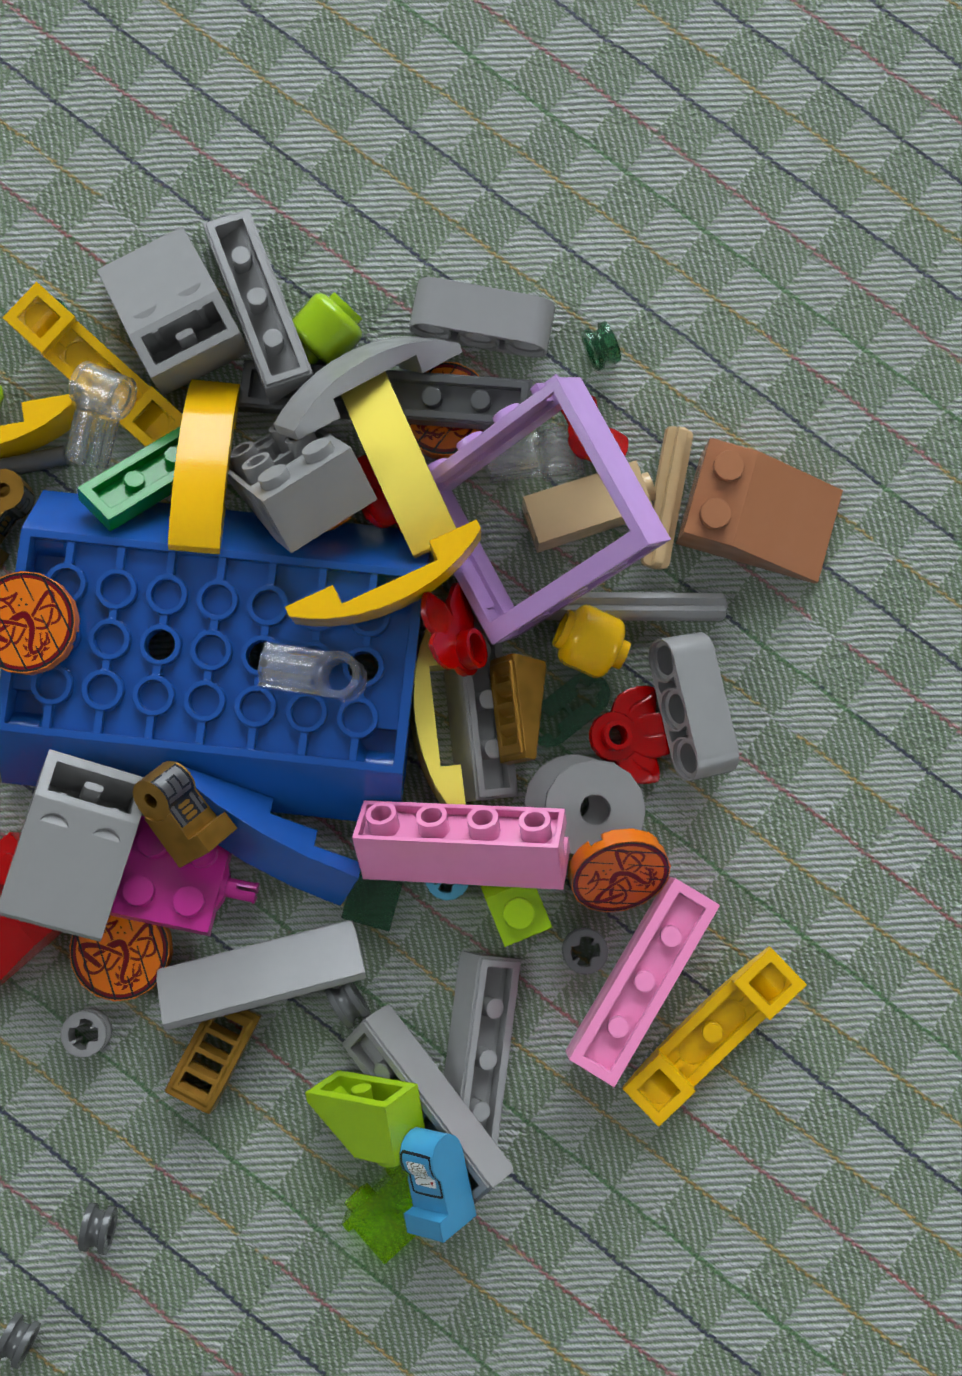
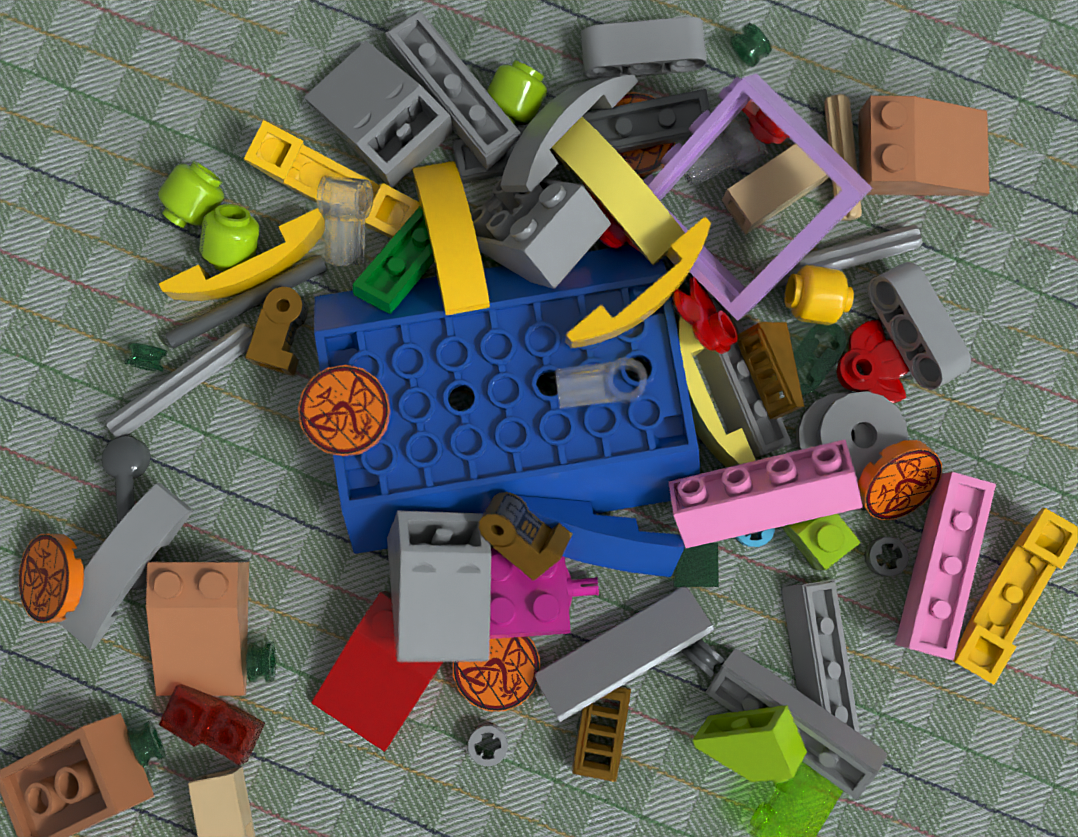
camera: 15 degrees left, 0 degrees up
(436, 1184) = (829, 783): dark azure leg -> none

